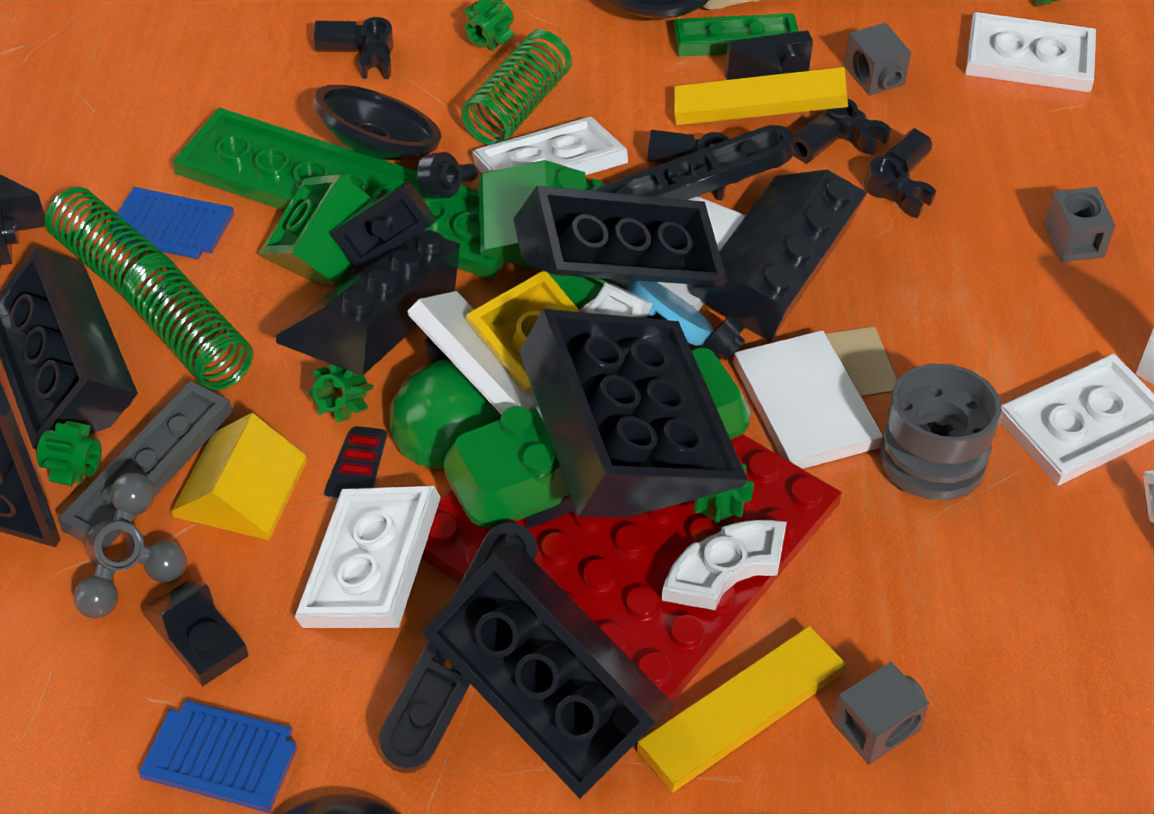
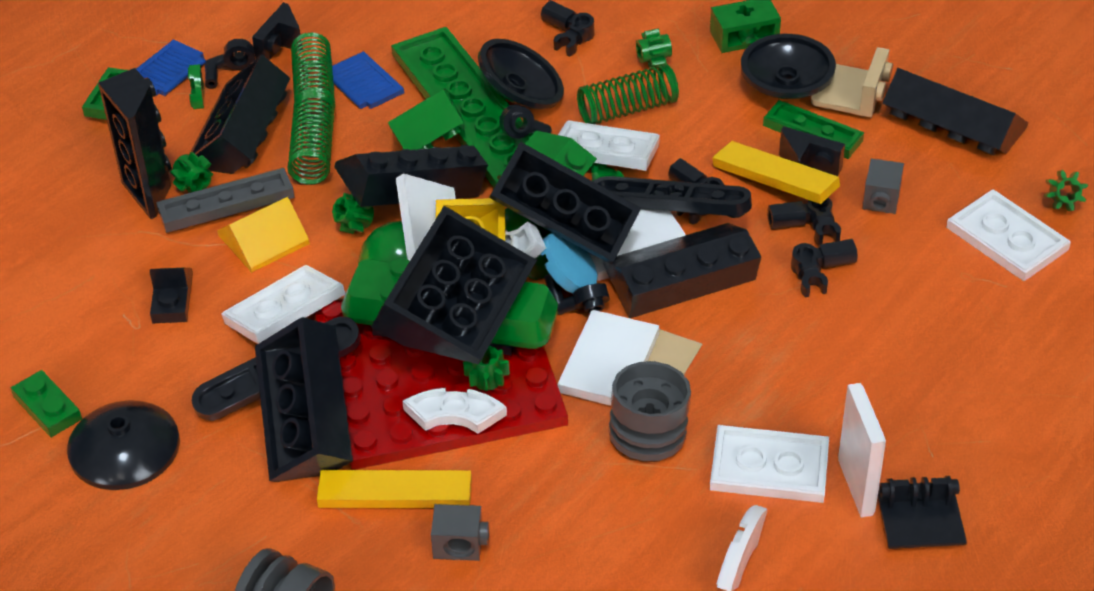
camera: 40 degrees right, 5 degrees down
(162, 561) = (186, 251): dark grey piece -> none
(221, 755) = (128, 358): blue window -> none
(357, 461) = (334, 257): black sticker -> none
(383, 224) = (447, 130): black slope -> none
(1079, 224) = (897, 351): dark grey brick -> none

